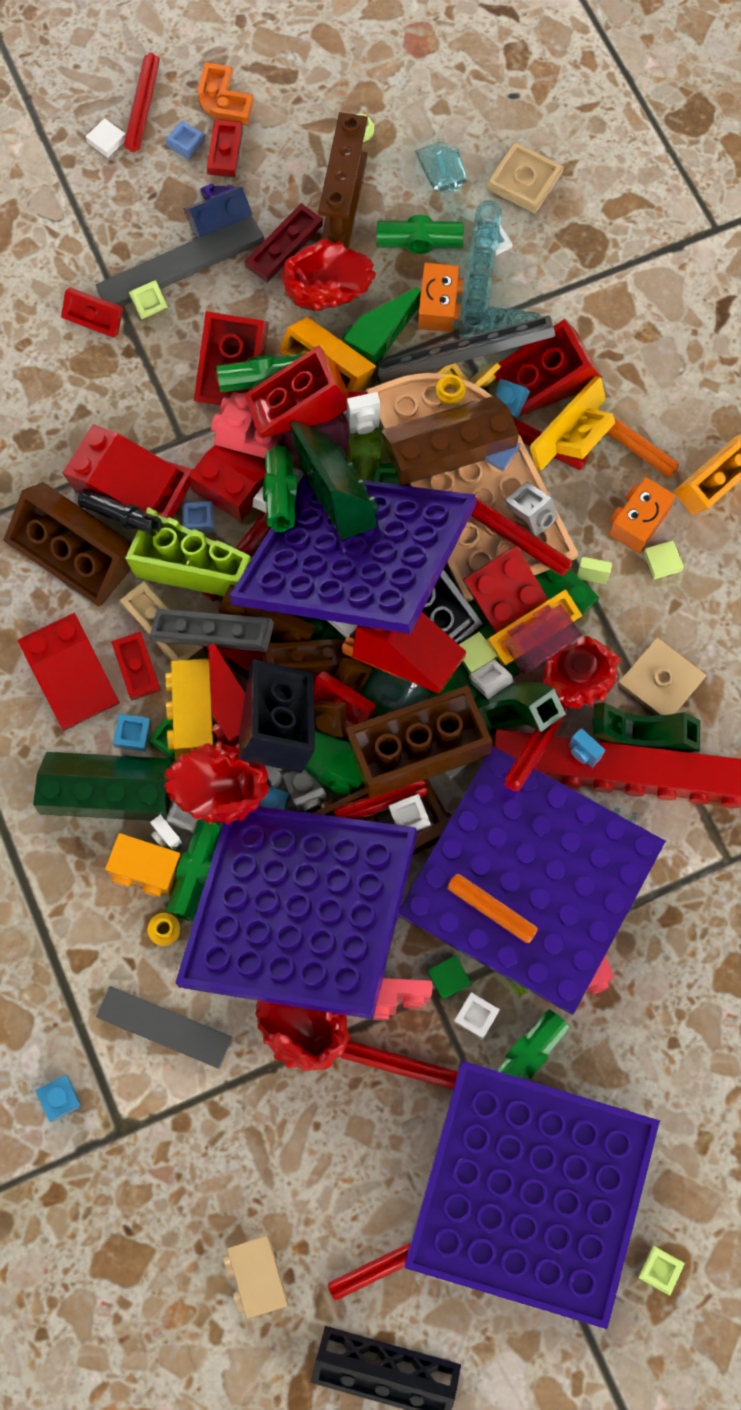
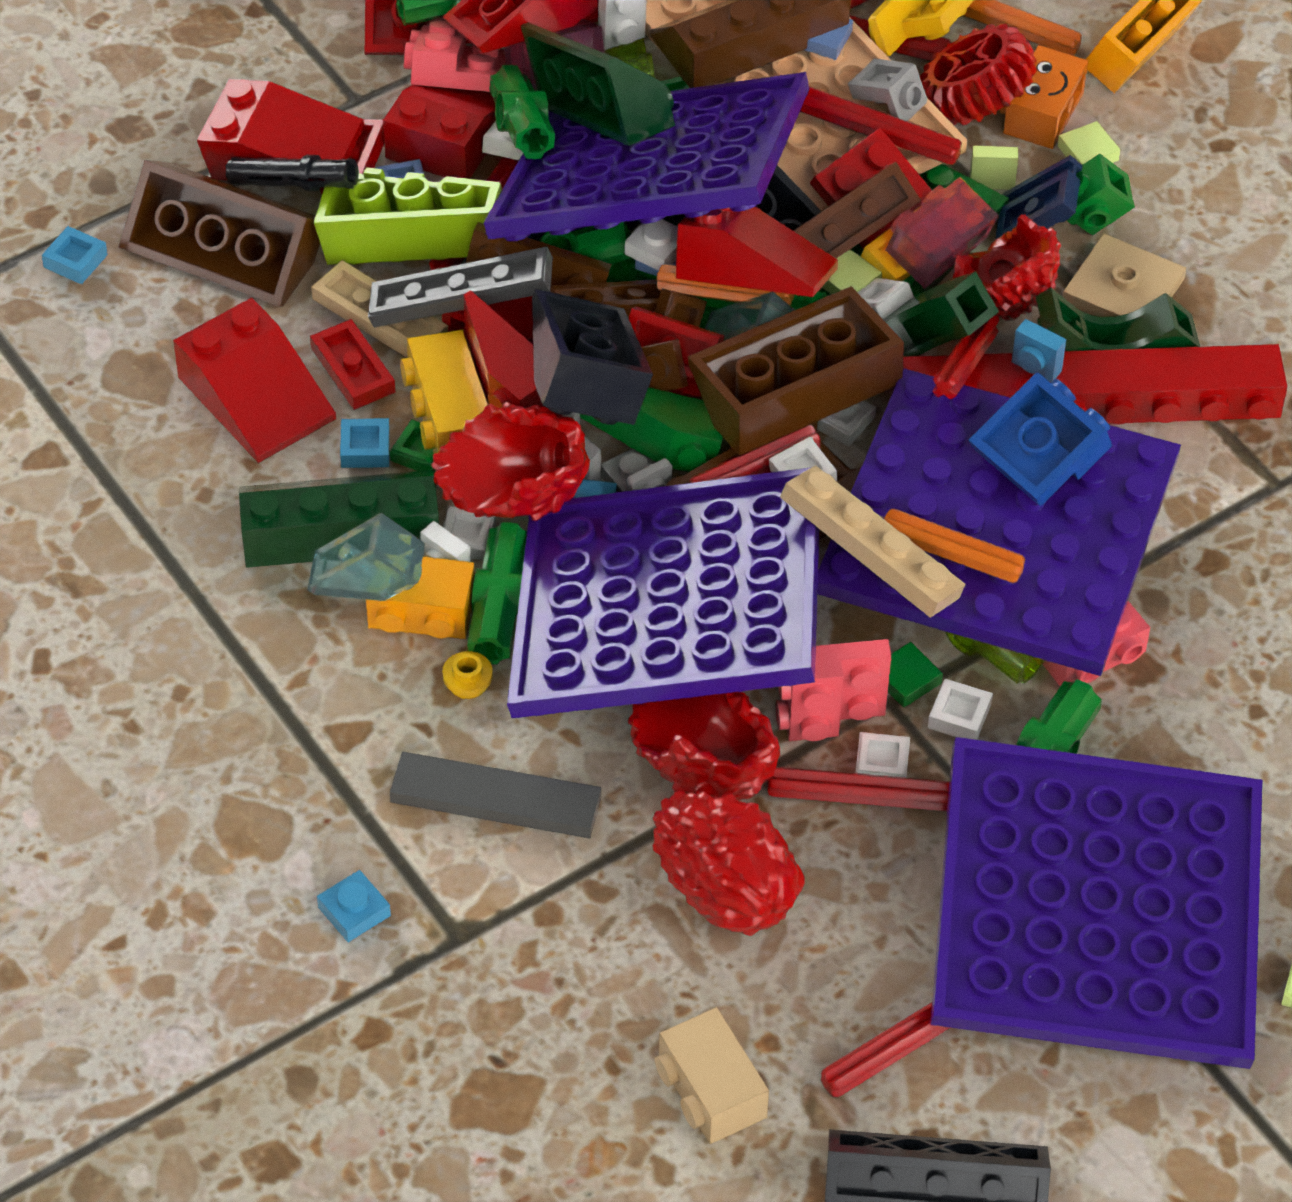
camera: 10 degrees left, 20 degrees down
(107, 851) = (368, 562): none -> clear light blue slope
(295, 1128) = (727, 860): none -> red hair
(418, 1042) = (882, 754): none -> white tile
(438, 900) = (872, 541): none -> tan plate
(486, 616) = (860, 212): none -> reddish brown plate
(569, 834) = (1042, 438): none -> blue plate
(598, 496) = (979, 73): none -> red gear
(617, 611) = (1044, 197): none -> dark blue plate
(657, 609) = (1102, 195): none -> green brick

